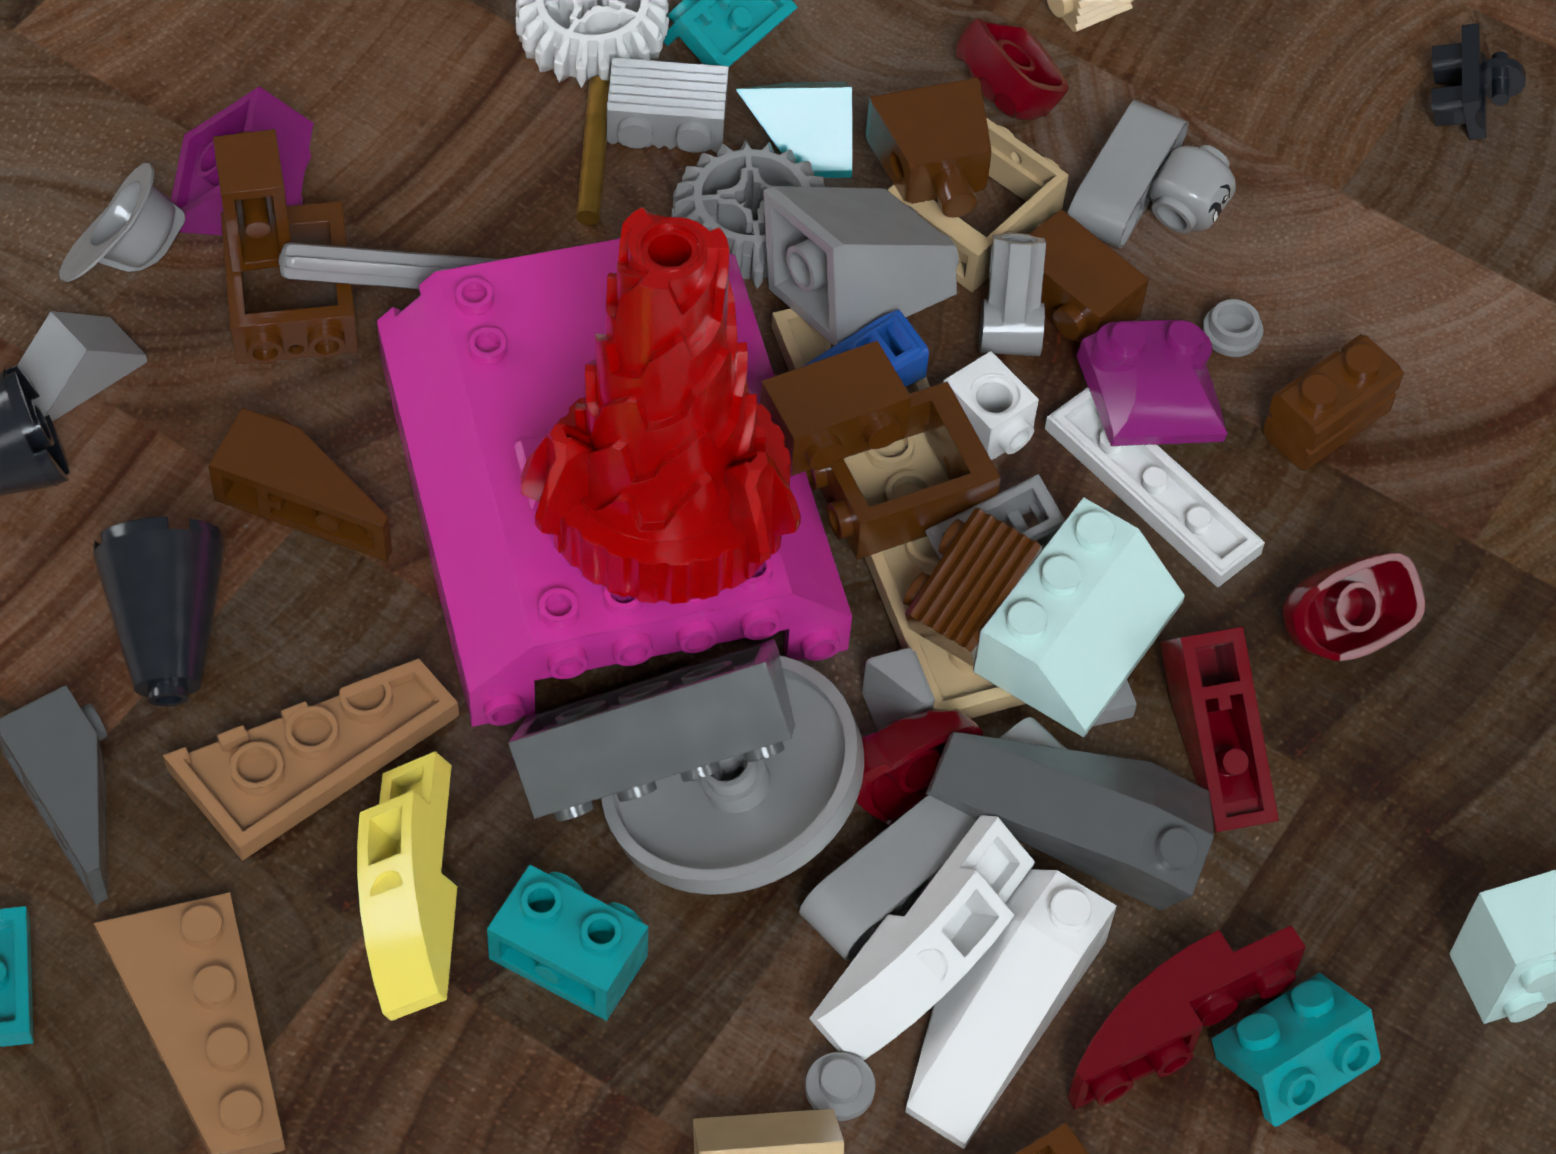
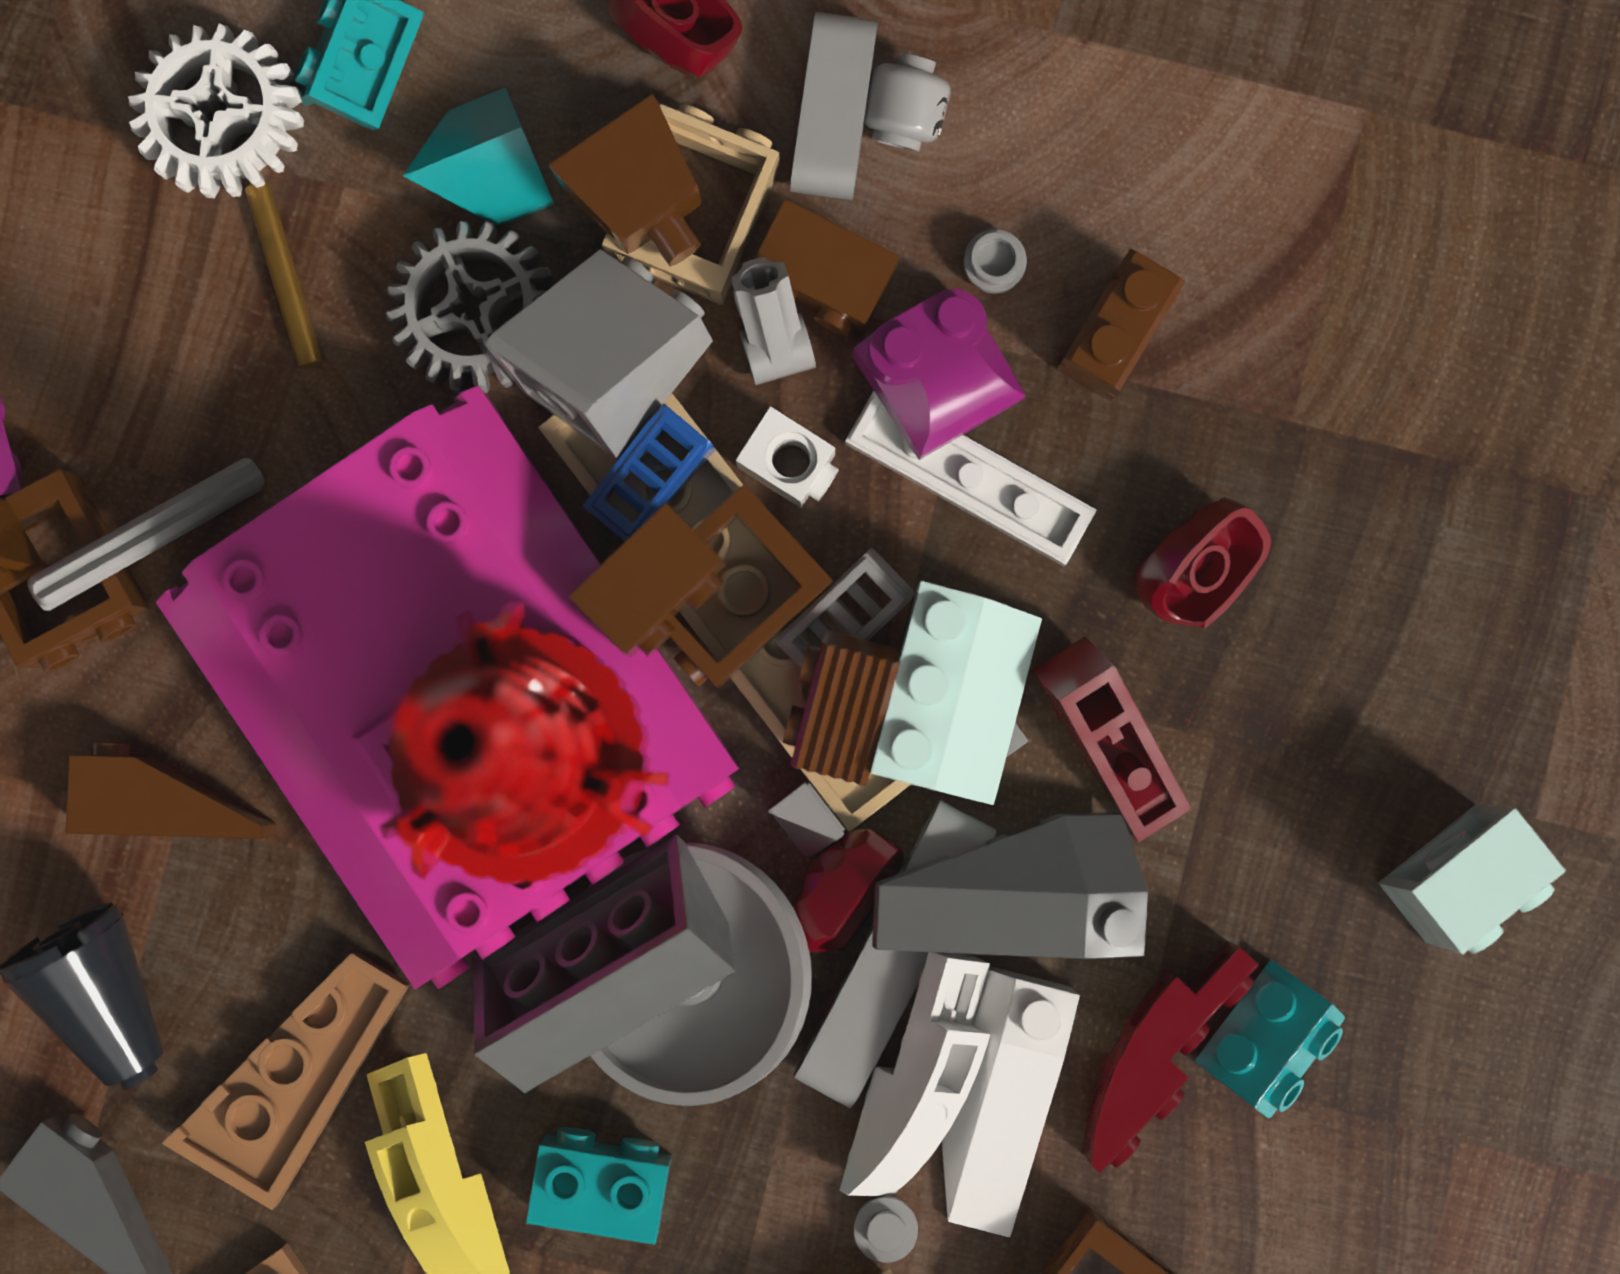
camera: 20 degrees left, 30 degrees up
(667, 104) = (336, 199): light grey brick -> none

